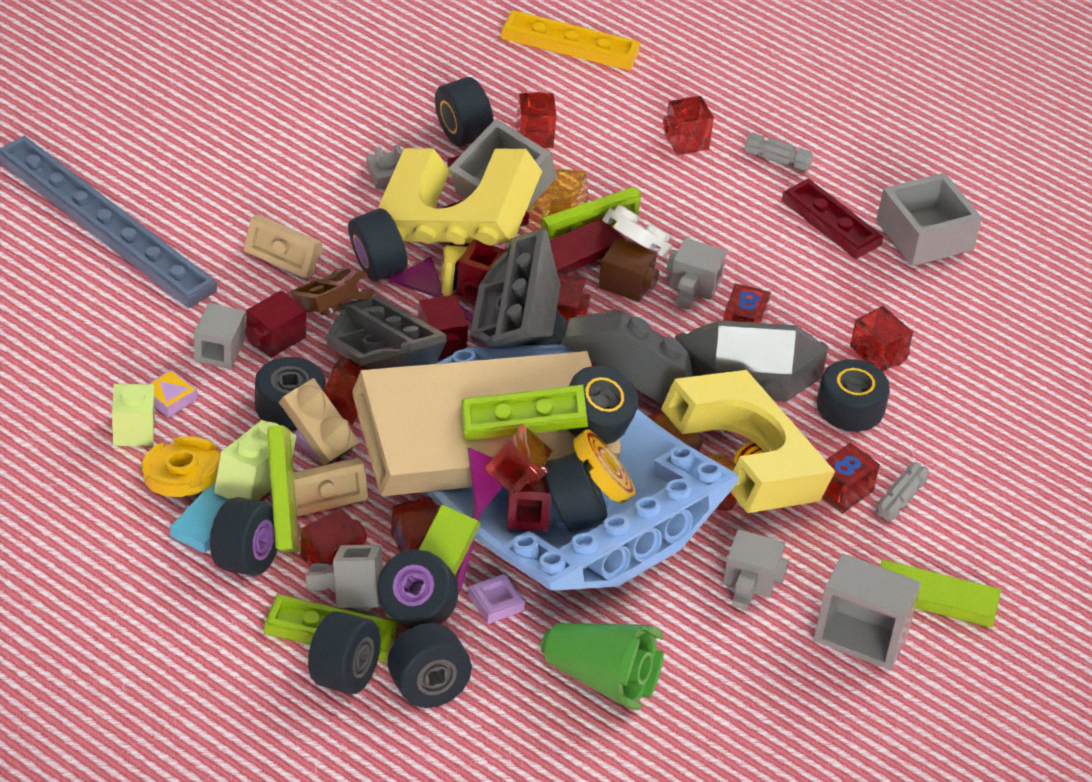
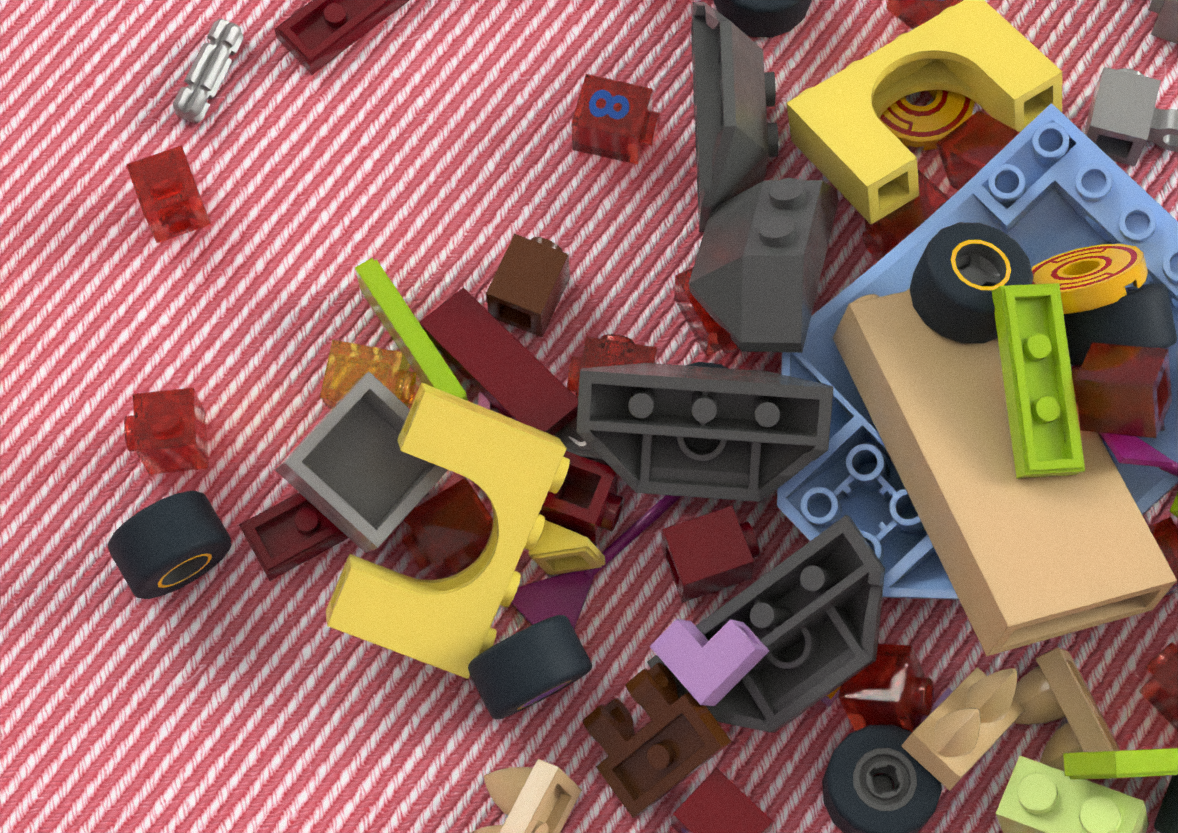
camera: 85 degrees left, 25 degrees up
(369, 298) = (710, 666): none -> lavender piece
(382, 166) = (292, 673): light grey tile -> none
(628, 225) = (455, 262): white plate -> none
(695, 271) = (519, 185): light grey brick -> none

